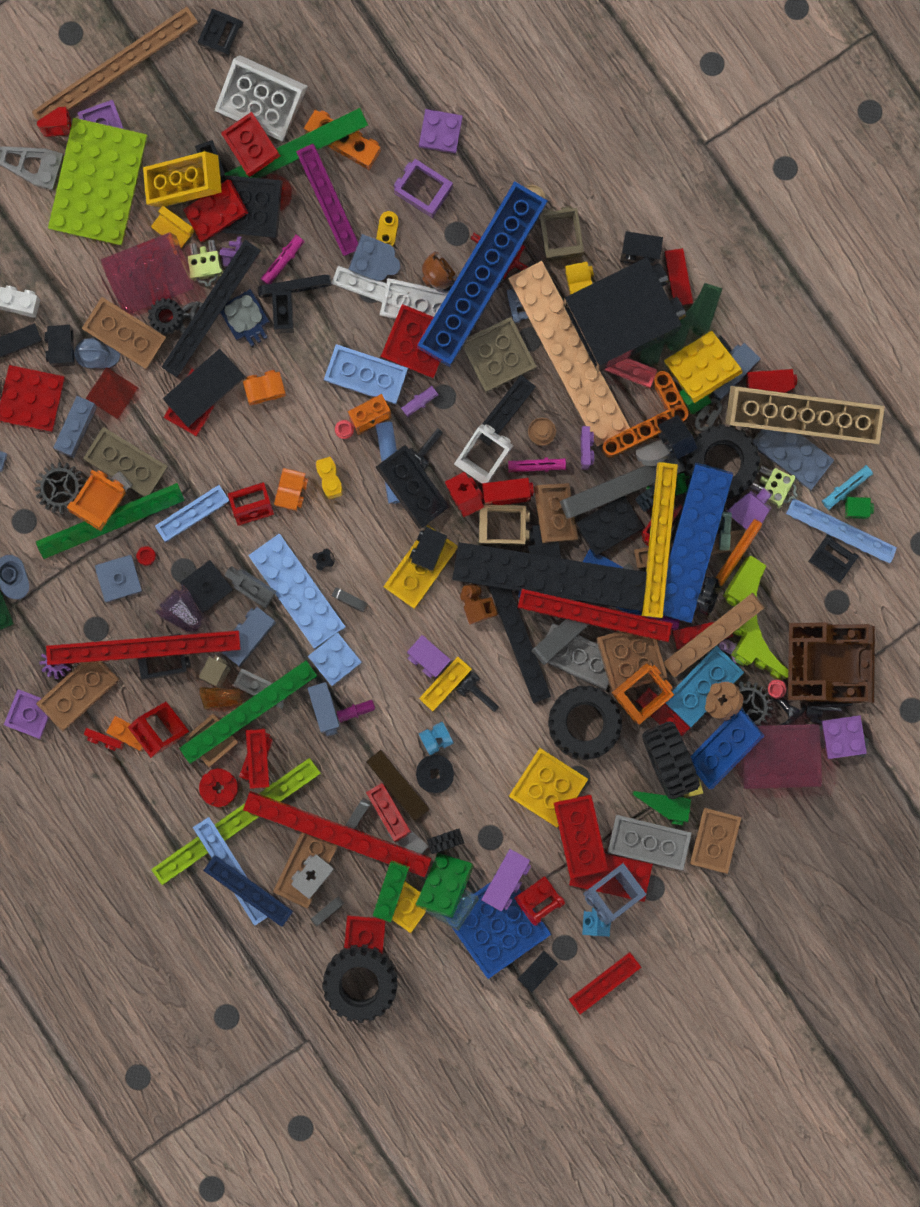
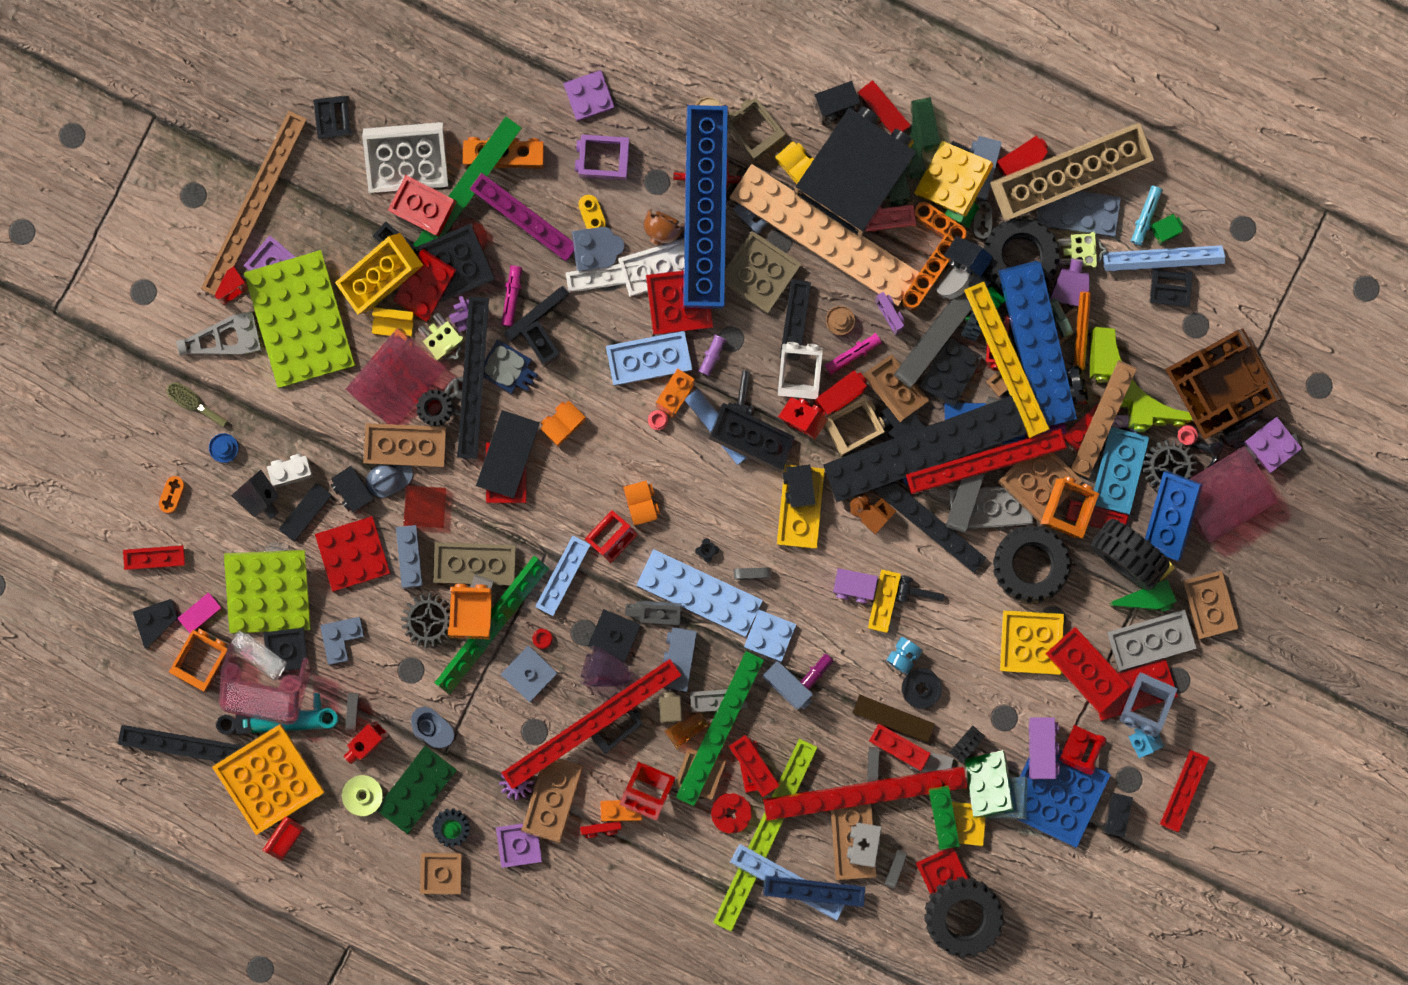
camera: 30 degrees left, 0 degrees up
(328, 474) = (674, 475): yellow brick -> none
(715, 697) = (1137, 469): medium nougat plate -> none

